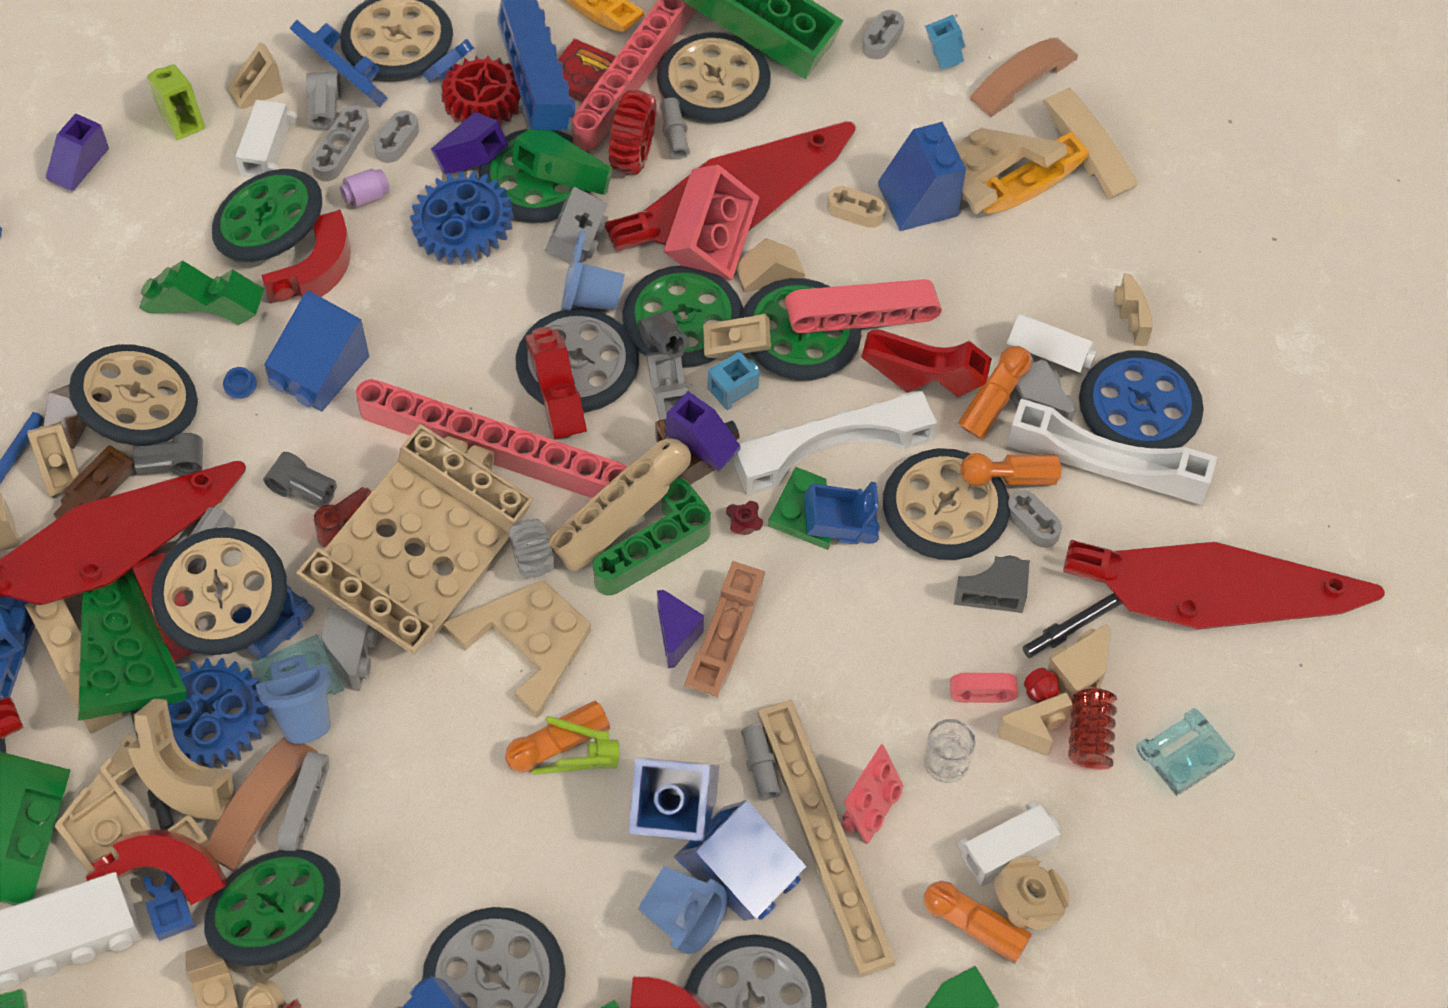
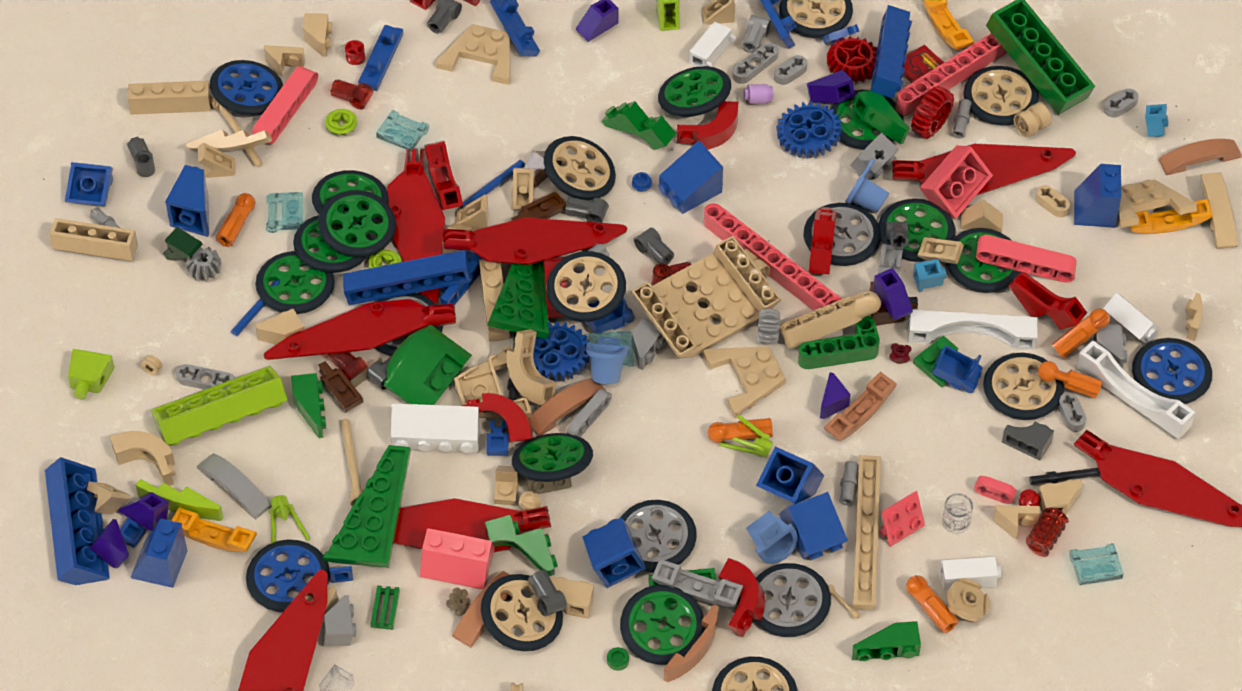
camera: 25 degrees right, 5 degrees down
(776, 97) = (1033, 119): none -> tan wheel
(865, 985) = (854, 613): none -> tan hinge

